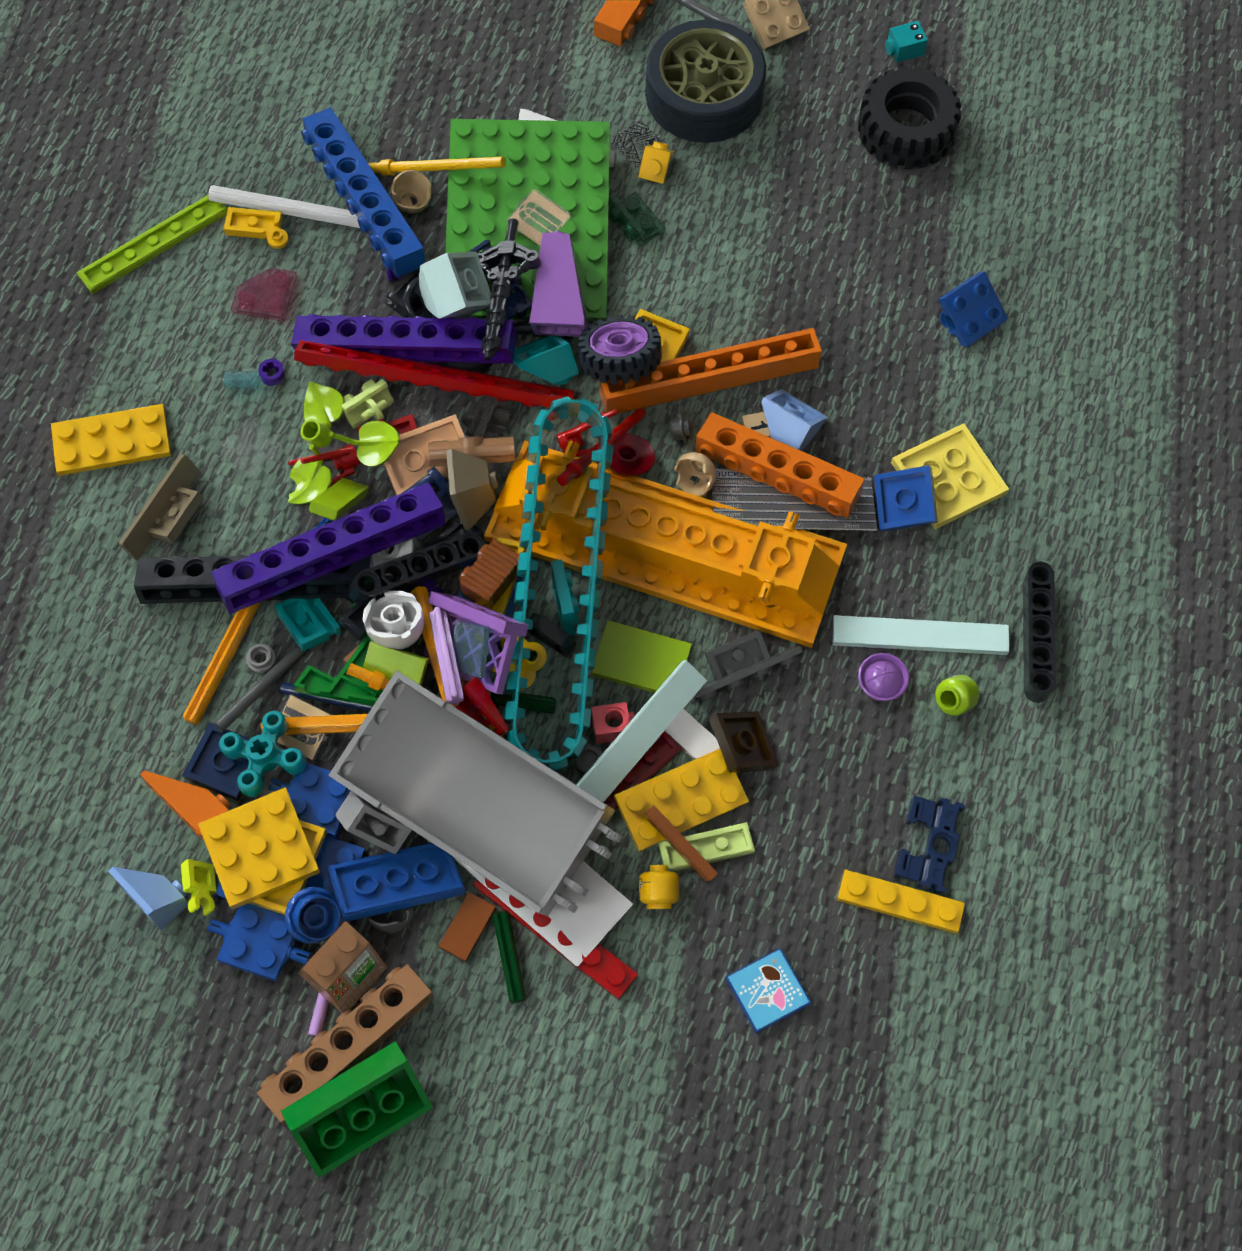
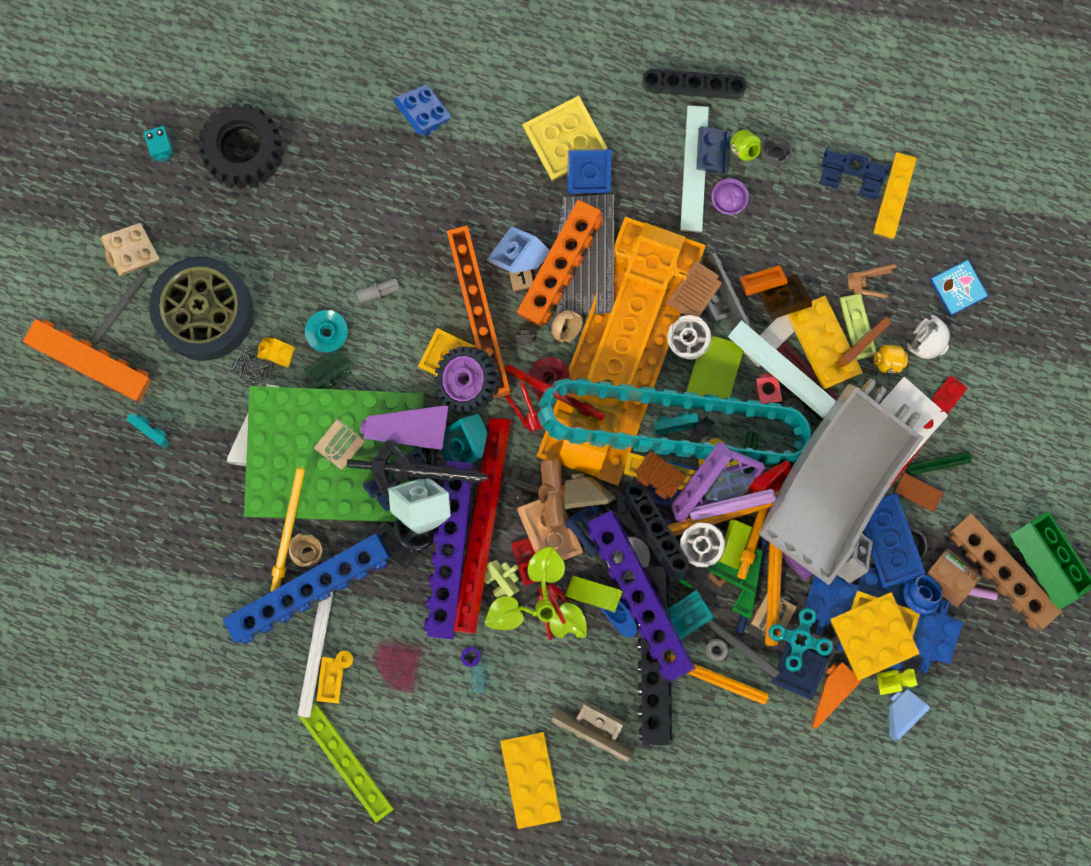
camera: 85 degrees left, 15 degrees up
(558, 35) = (156, 435): none -> teal plate
(681, 616) = (689, 337): none -> white cylinder
(682, 203) = (326, 320): none -> teal dish
(687, 942) = (933, 337): none -> white cylinder
(736, 267) = (377, 290): none -> light grey axle
(747, 625) = (696, 291): none -> medium nougat window
(767, 719) = (763, 280): none -> orange tile
(772, 846) = (858, 280): none -> medium nougat plant
(947, 655) = (712, 150): none -> dark blue plate
(958, 725) = (773, 142): none -> dark grey hair

